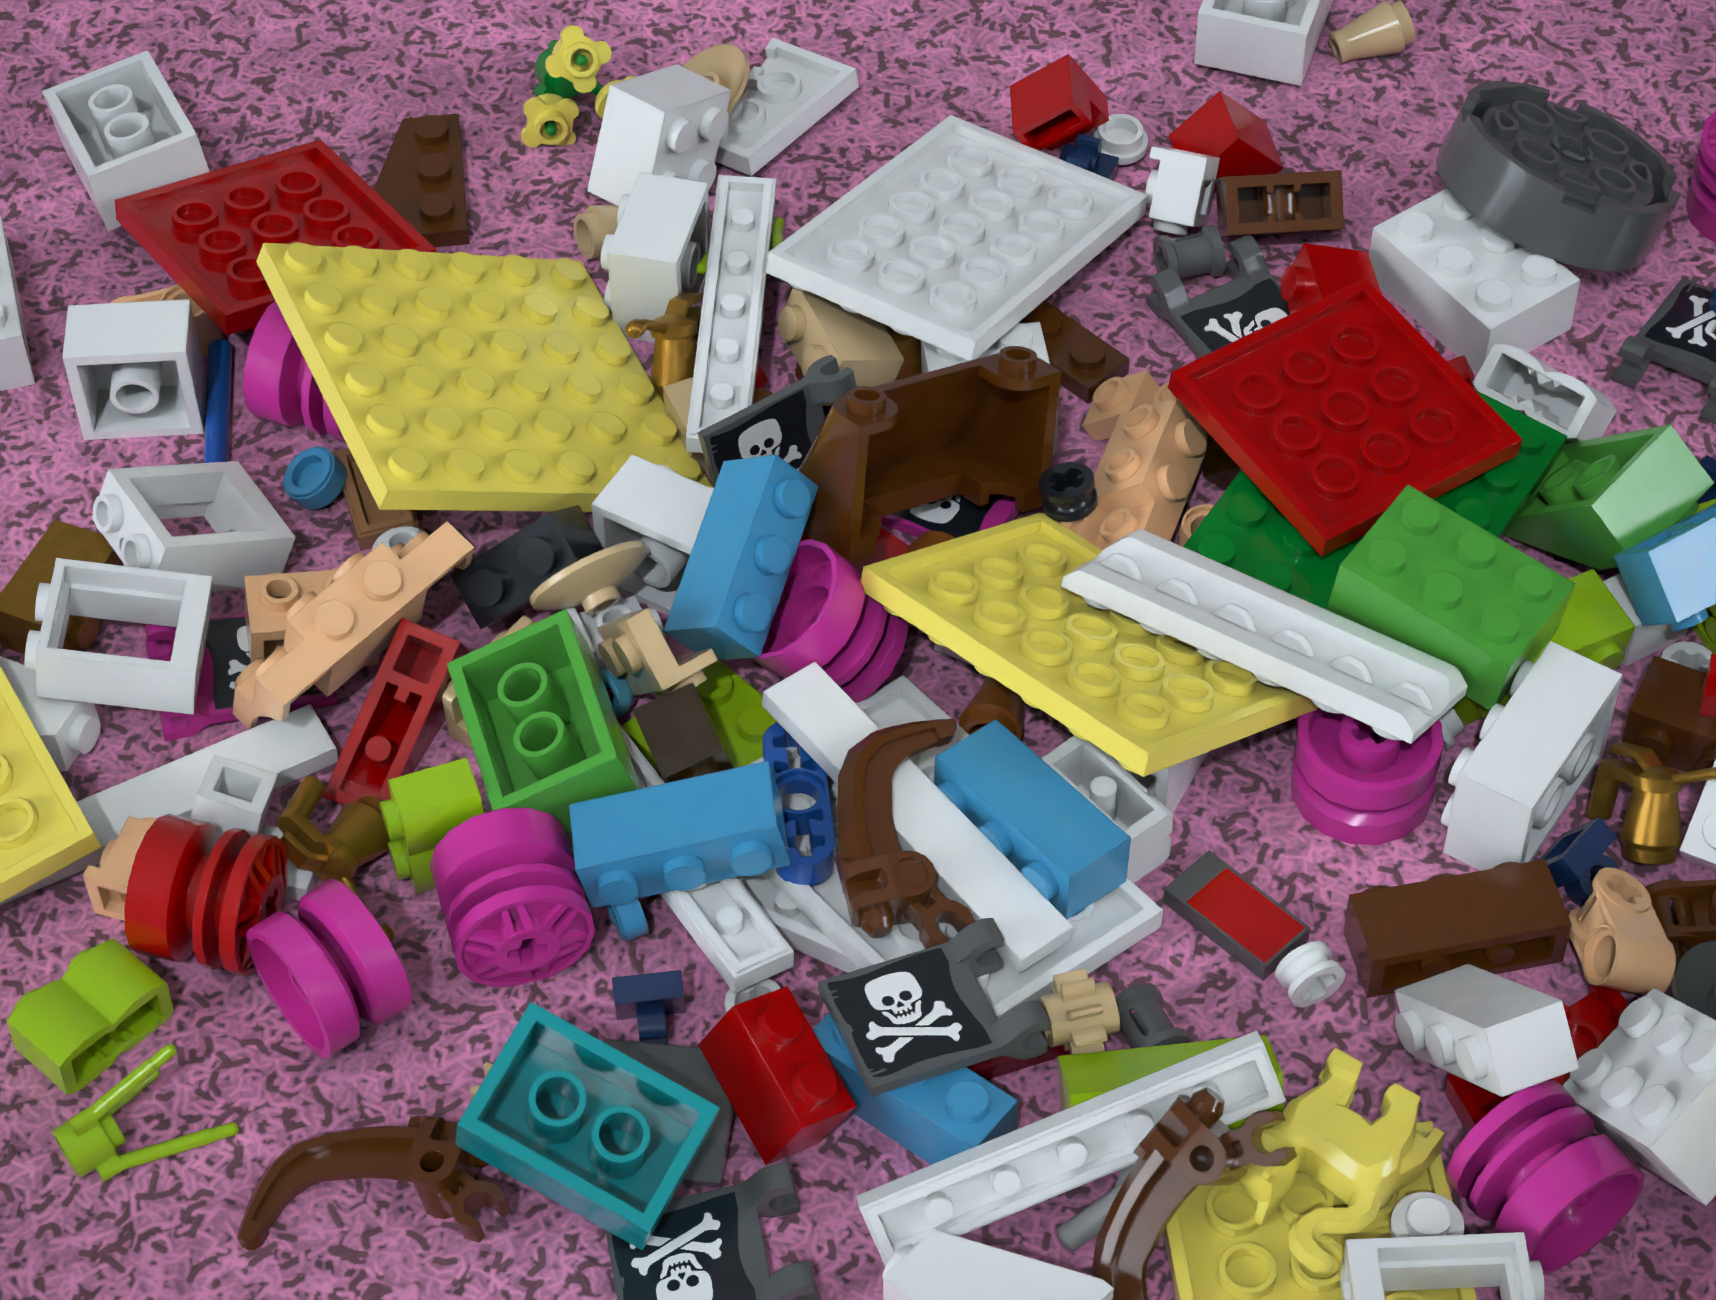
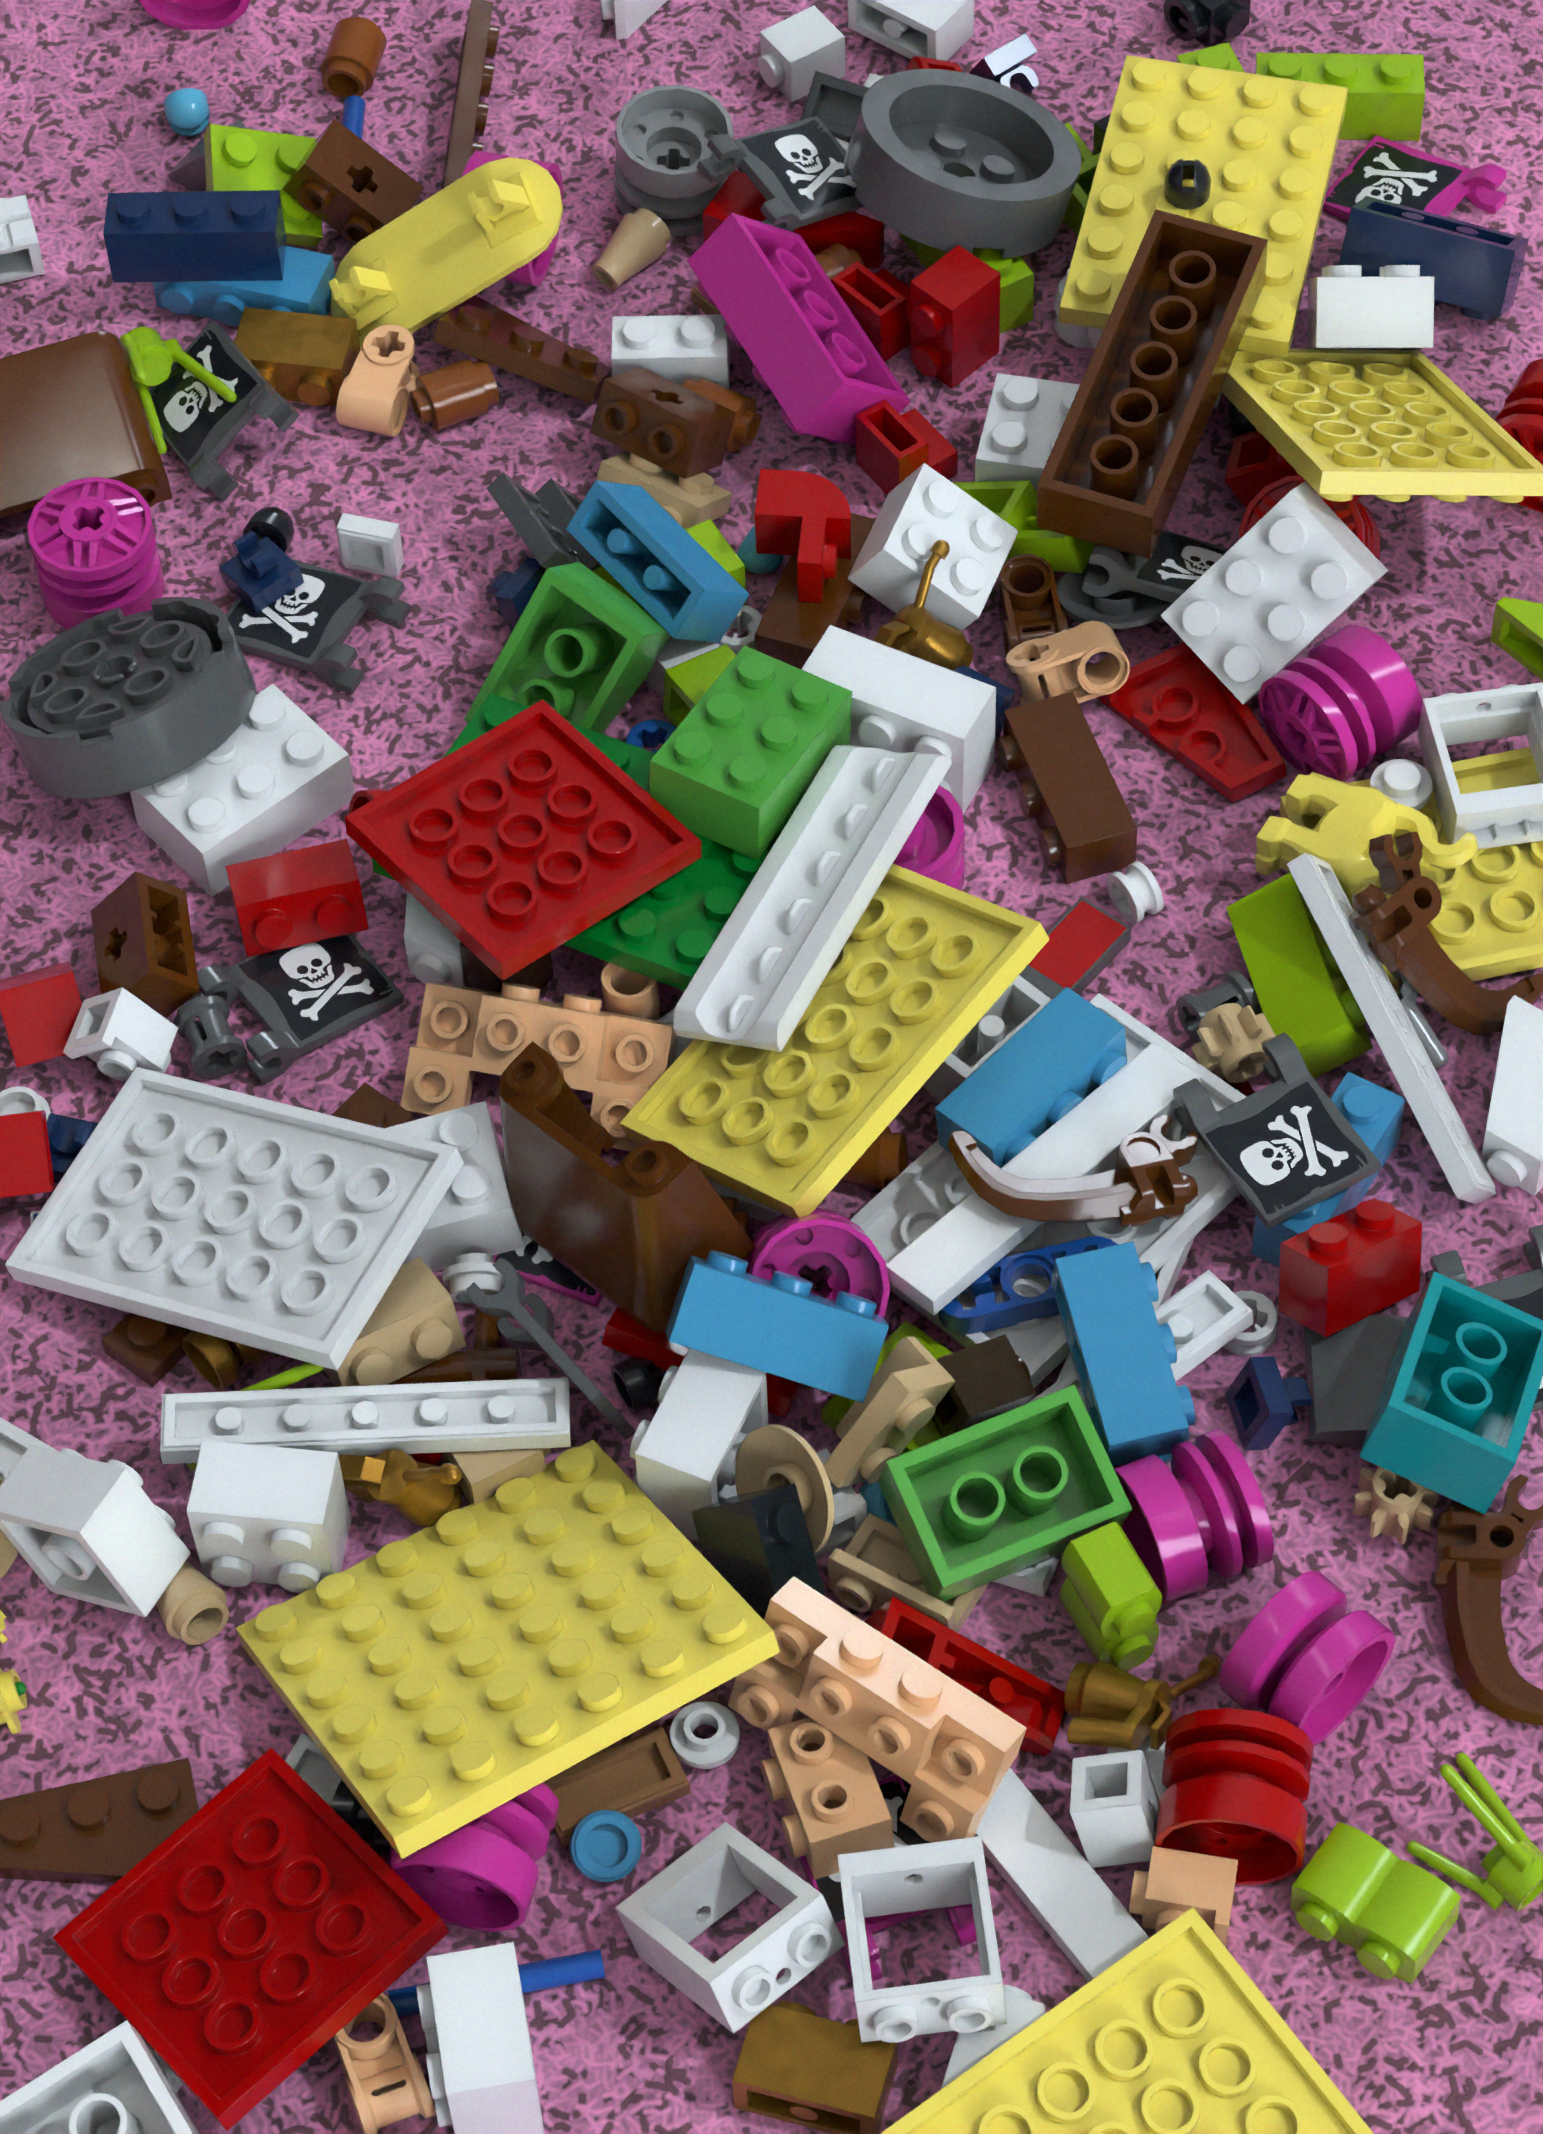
camera: 95 degrees left, 5 degrees up
(1068, 491) = (596, 1072): black bush -> none
(1485, 1029) = (1213, 736): white brick -> none
(1544, 393) = (416, 723): white brick -> none

